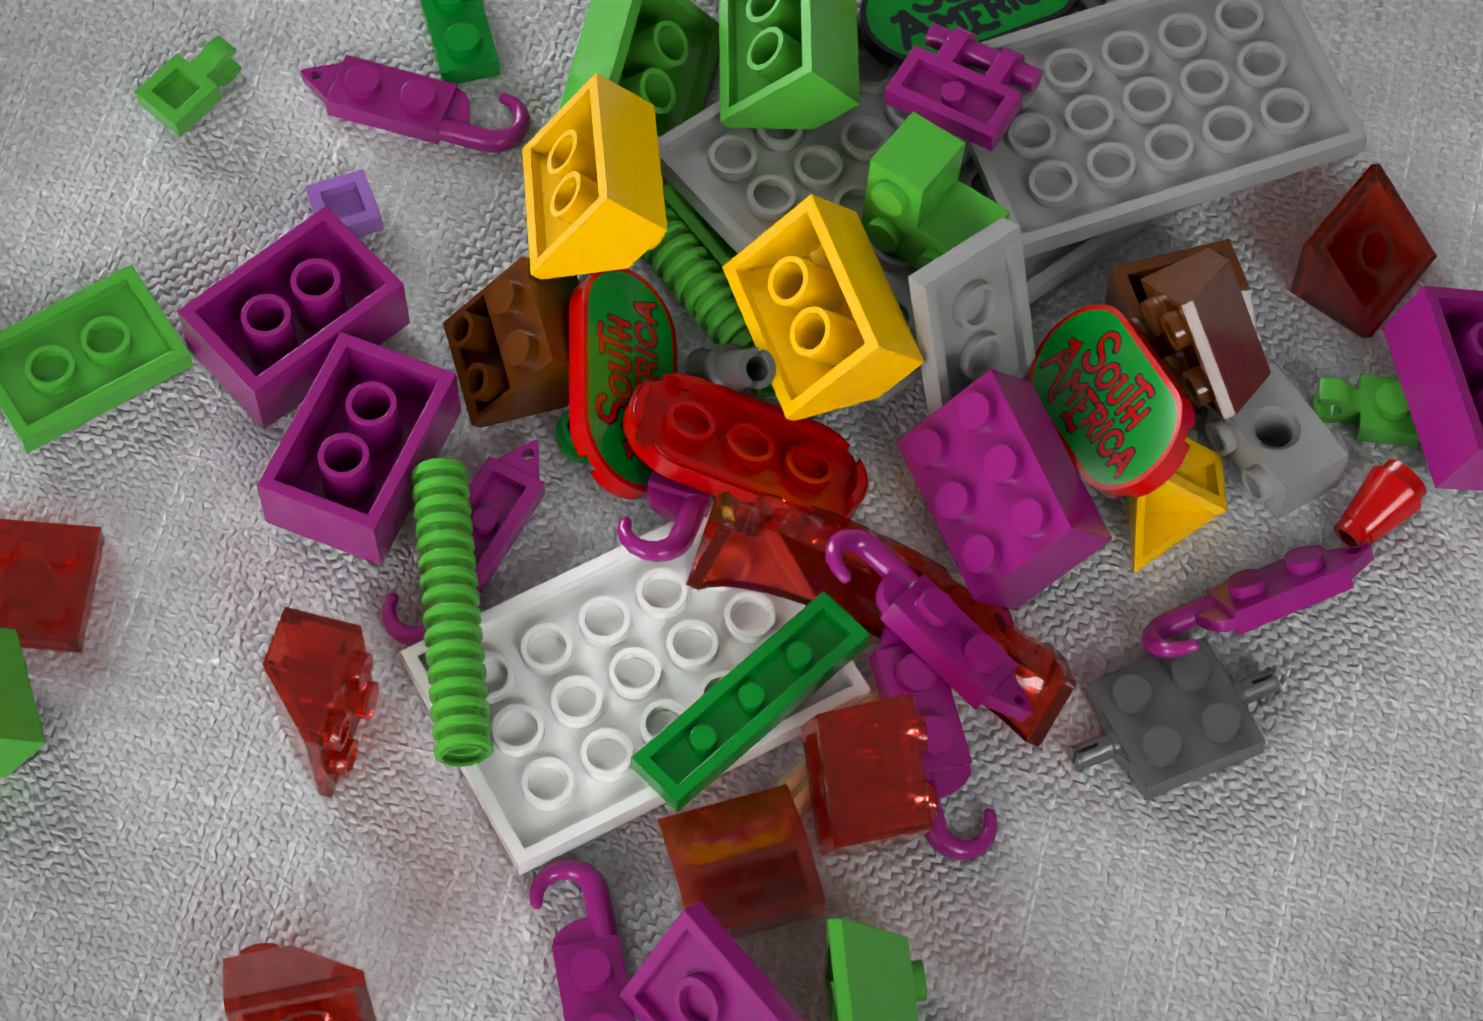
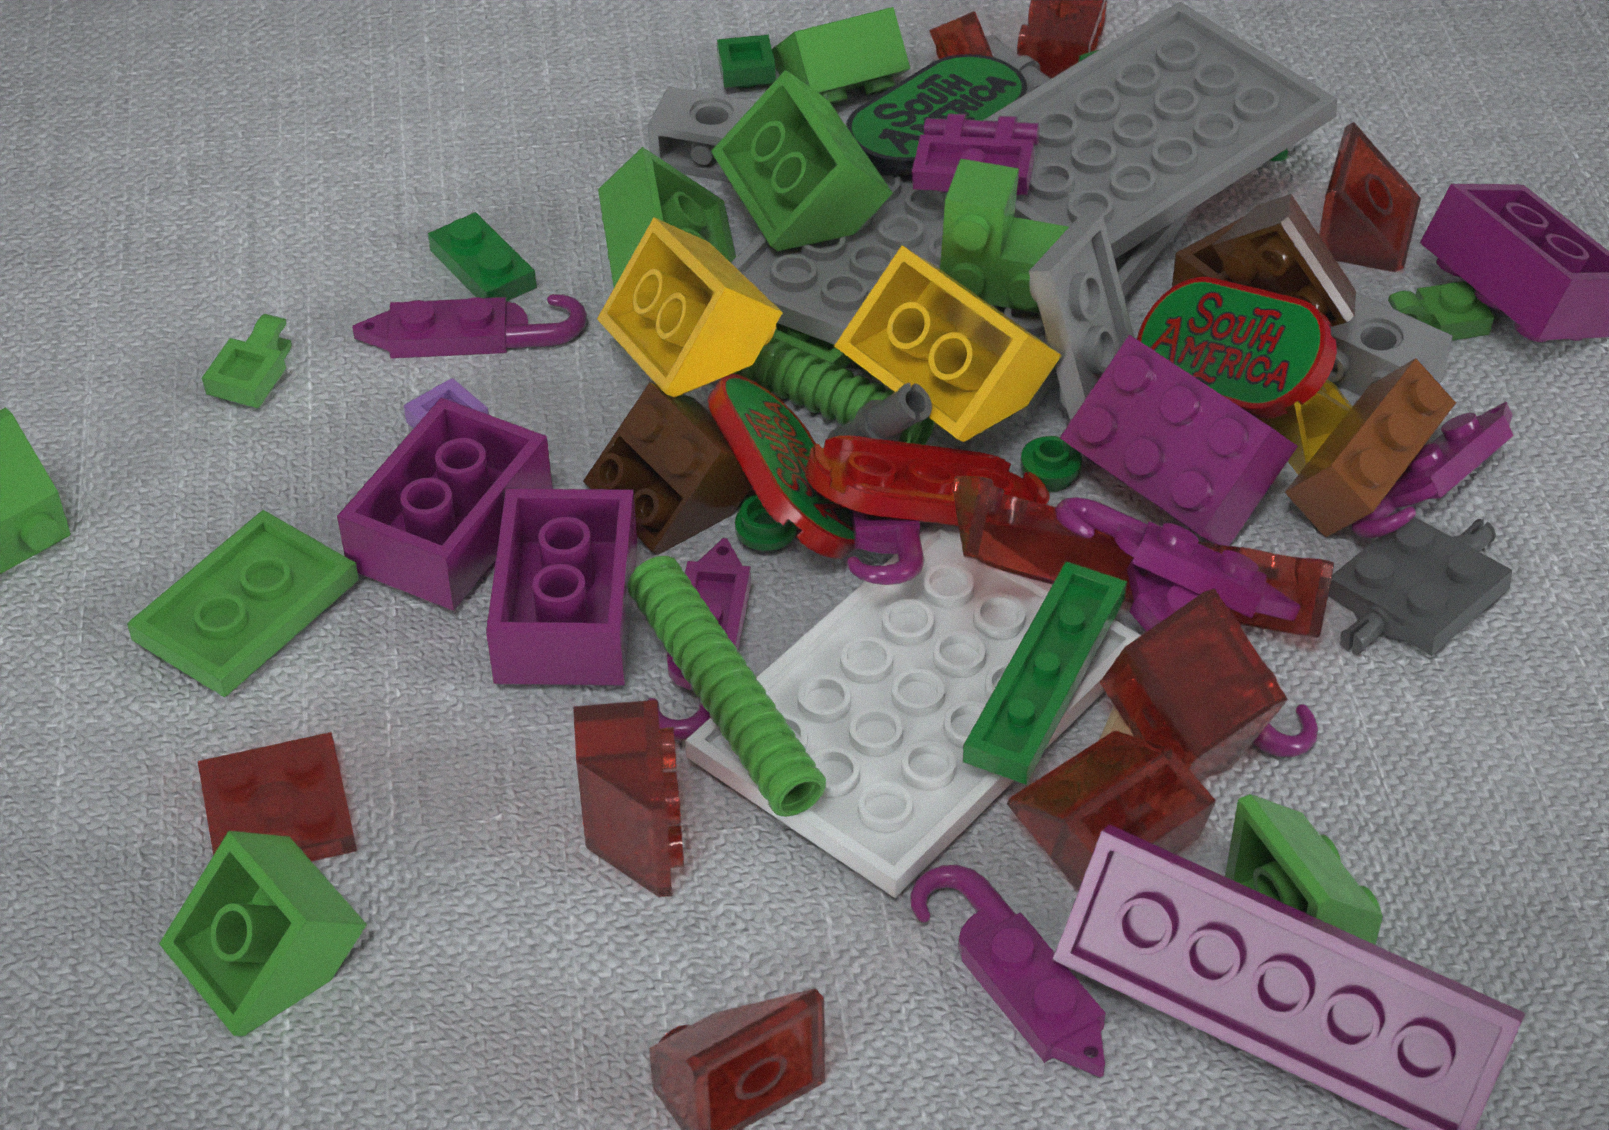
camera: 20 degrees left, 15 degrees down
(881, 468) = (1051, 462): none -> green plate
(1199, 555) = (1370, 448): none -> dark orange brick
(1381, 504) = (1494, 371): red cone -> none

